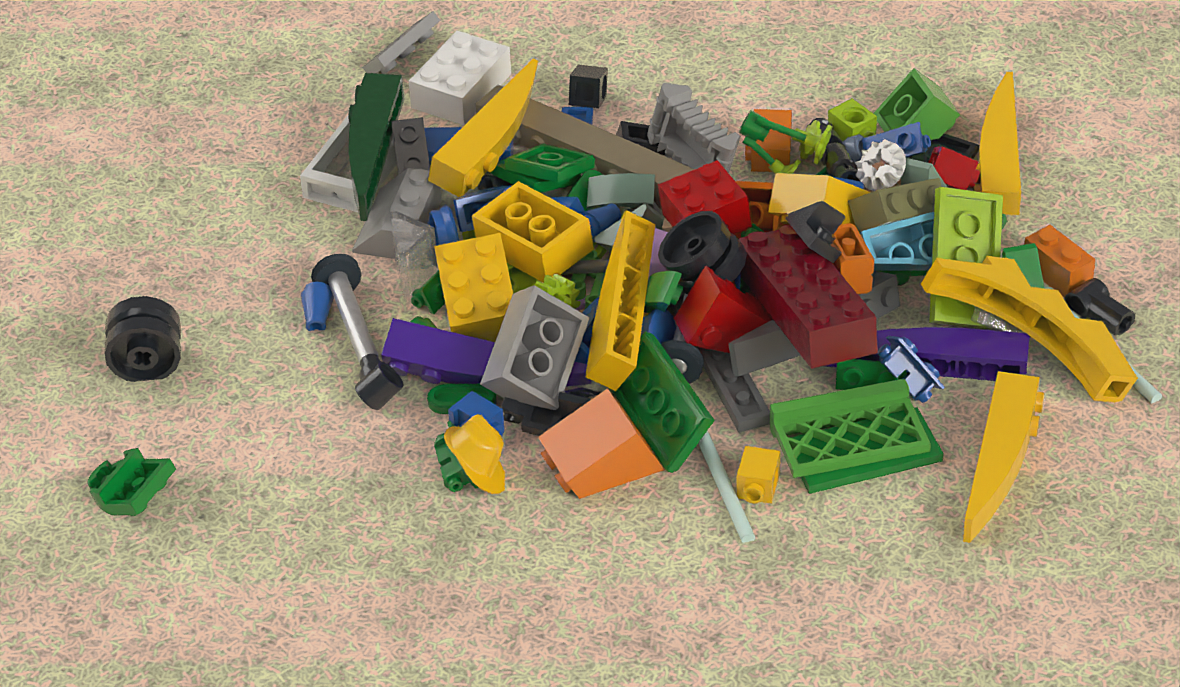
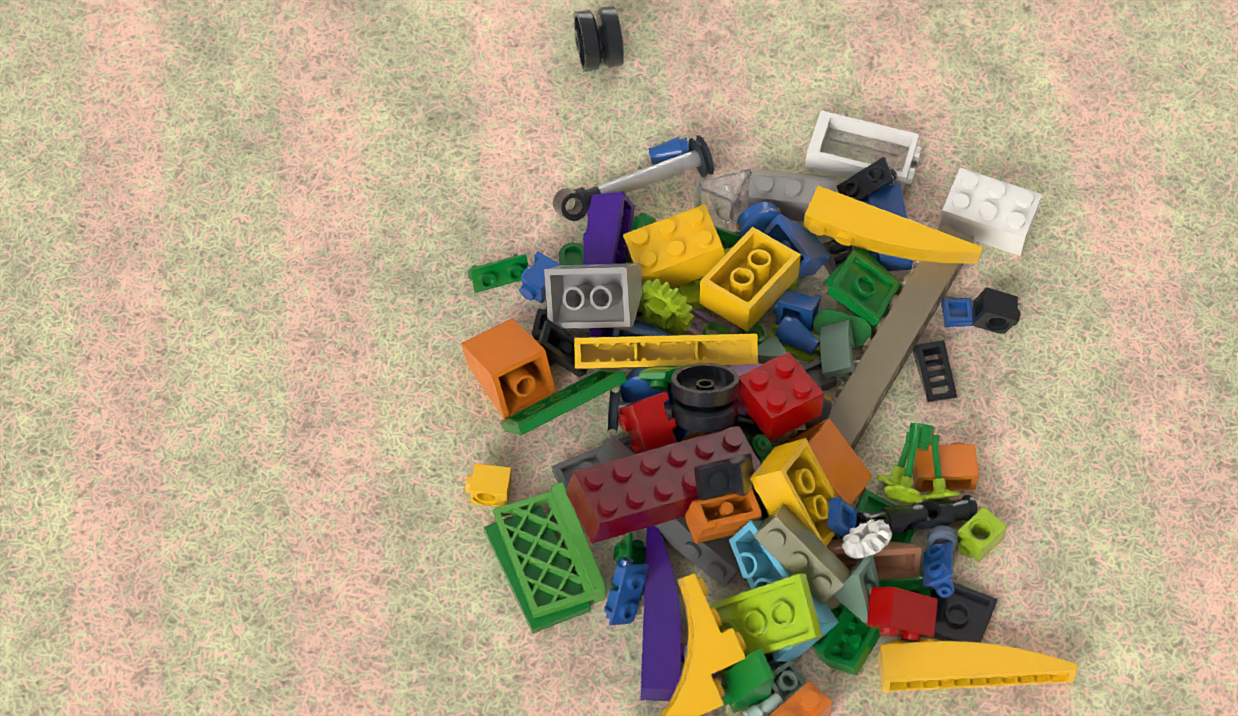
camera: 80 degrees right, 15 degrees up
(129, 482) = (453, 63): green slope -> none
(370, 133) = (860, 146): dark green slope -> none
(402, 45) = (1035, 164): light grey plate -> none
(478, 451) = (490, 280): yellow piece -> none
(688, 132) = (912, 394): light grey piece -> none
(726, 489) = (564, 436): light aqua bar -> none
(918, 101) = (1008, 589): bright green slope -> none
(1003, 446) = (538, 675): yellow slope -> none

